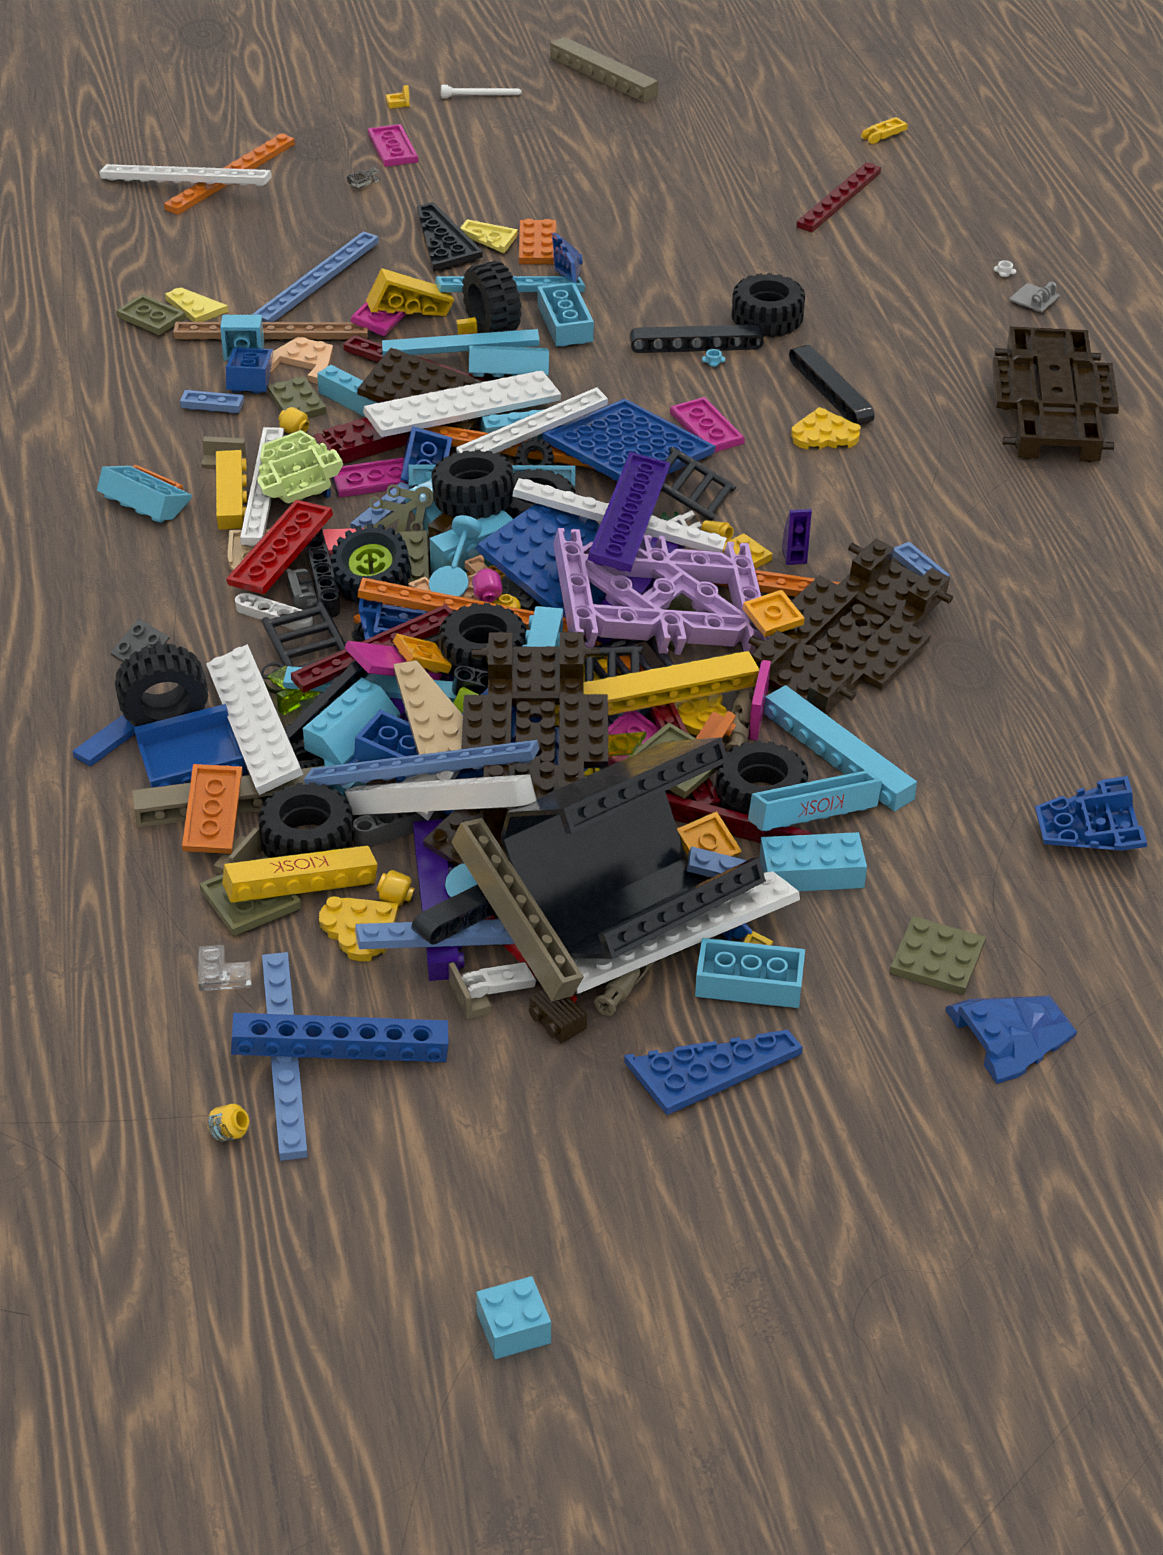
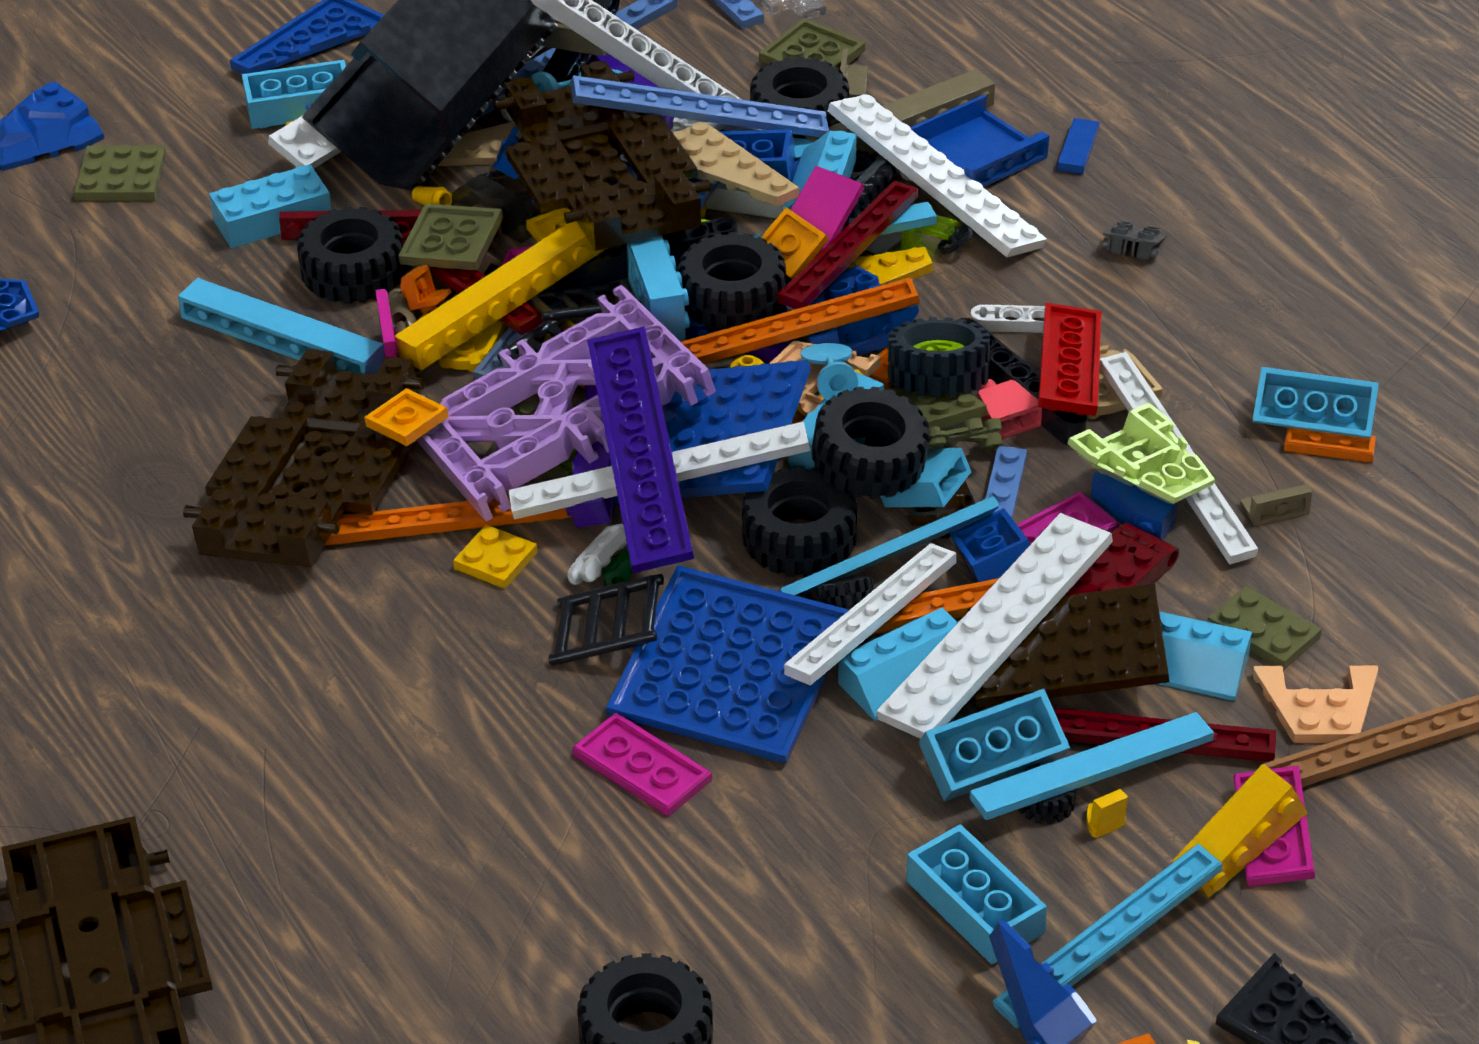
camera: 160 degrees right, 0 degrees up
(157, 666) = (1041, 144): black tyre -> none
(212, 401) = (1371, 579): medium blue plate -> none
(212, 809) = (899, 80): orange plate -> none
(230, 489) = (1214, 436): yellow wedge -> none
(241, 331) = (1421, 673): medium azure brick -> none
(249, 369) = (1366, 632): blue slope -> none
(277, 640) = (963, 269): black bar -> none
(293, 420) = (1227, 573): yellow head -> none
(299, 873) = (794, 38): yellow brick -> none
(301, 590) = (1017, 339): dark grey hinge -> none
(317, 277) = (1441, 876): medium blue plate -> none
(342, 915) = (712, 60): yellow plate -> none
(487, 585) = (773, 349): dark pink head -> none
(492, 297) = (1089, 821): black tyre -> none
(624, 743) = (517, 229): clear neon green piece -> none
(687, 342) = (747, 921): black beam -> none
(709, 834) = (389, 193): light orange plate -> none
(709, 862) = (362, 178): medium blue plate -> none
(713, 357) = (692, 899): medium azure plate -> none
(720, 528) = (541, 573): yellow cone -> none
(796, 536) = (420, 550): dark purple slope -> none
(814, 800) = (280, 232): medium azure brick -> none
(825, 429) = (456, 807): yellow plate -> none
(831, 384) = (478, 892): black beam -> none
(915, 560) = (245, 599): medium blue plate -> none

